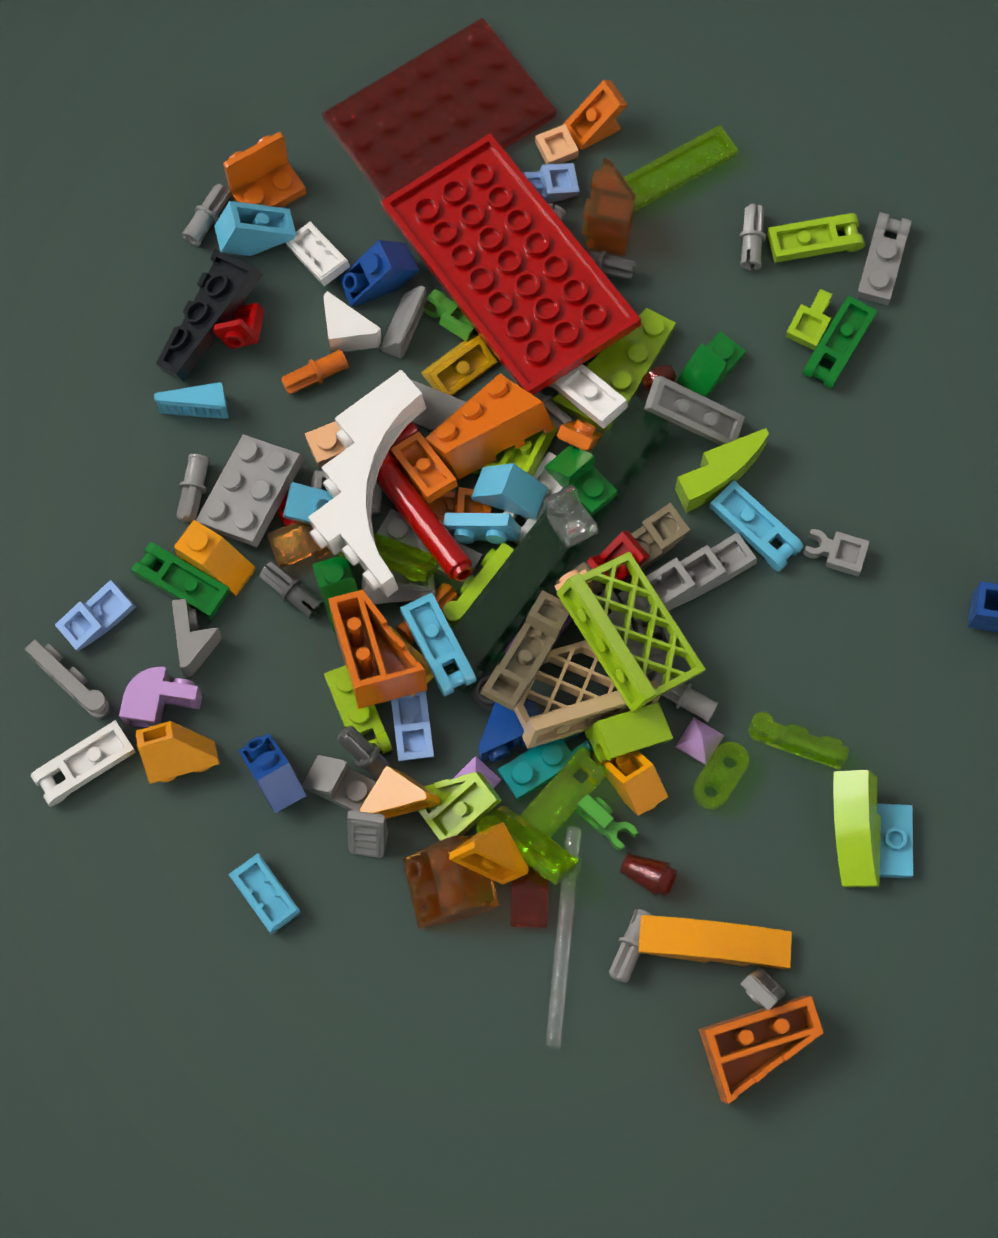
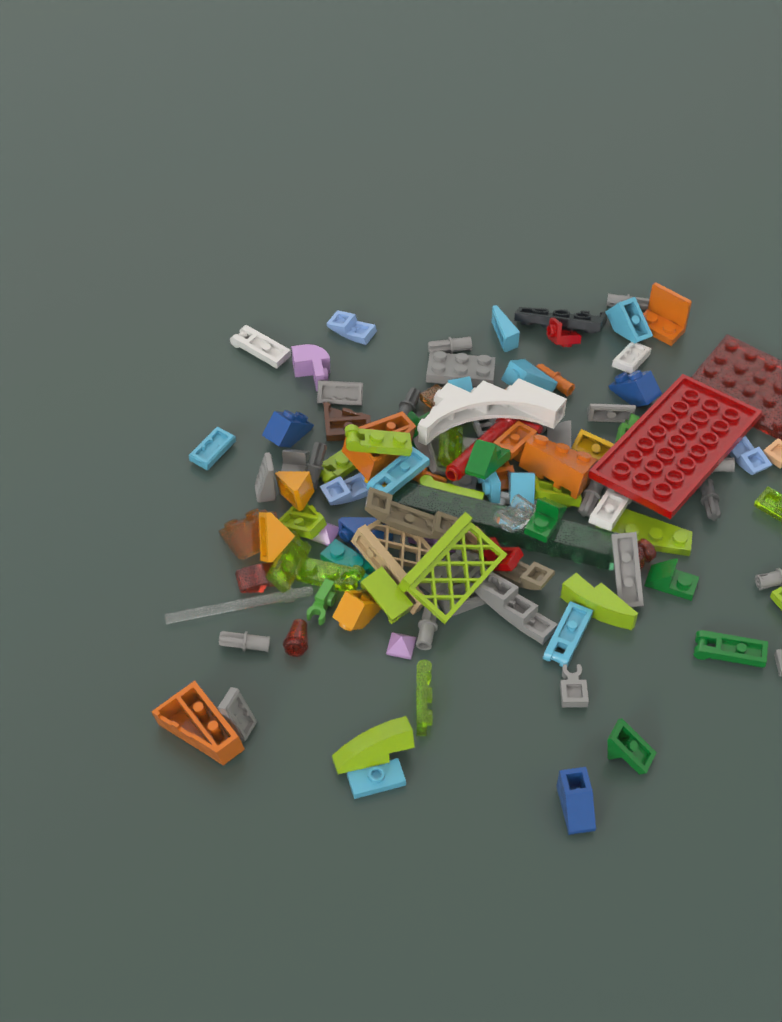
camera: 70 degrees right, 20 degrees down
(69, 680) = (307, 321): light grey plate -> none
(174, 750) = (281, 378): light orange slope -> none
(181, 580) = (389, 357): green plate -> none
(192, 645) = (355, 367): light grey slope -> none
(214, 556) = (409, 364): light orange slope -> none
(228, 675) = (340, 392): none -> light grey plate
(290, 688) = (337, 420): none -> reddish brown wing
(311, 405) = (526, 371): none -> medium azure slope
(348, 328) = (589, 381): white slope -> none
(391, 650) = (377, 441): none -> lime plate
(459, 517) = (486, 459): none -> green slope
(579, 434) = (576, 509): orange plate -> none
(608, 211) = (744, 484): clear orange slope -> none
(714, 942) = (263, 686): light orange slope -> none
(719, 776) = (381, 659): clear neon green plate -> none
(810, 323) = (736, 625): lime plate -> none
(950, 520) = (630, 746): none -> green slope

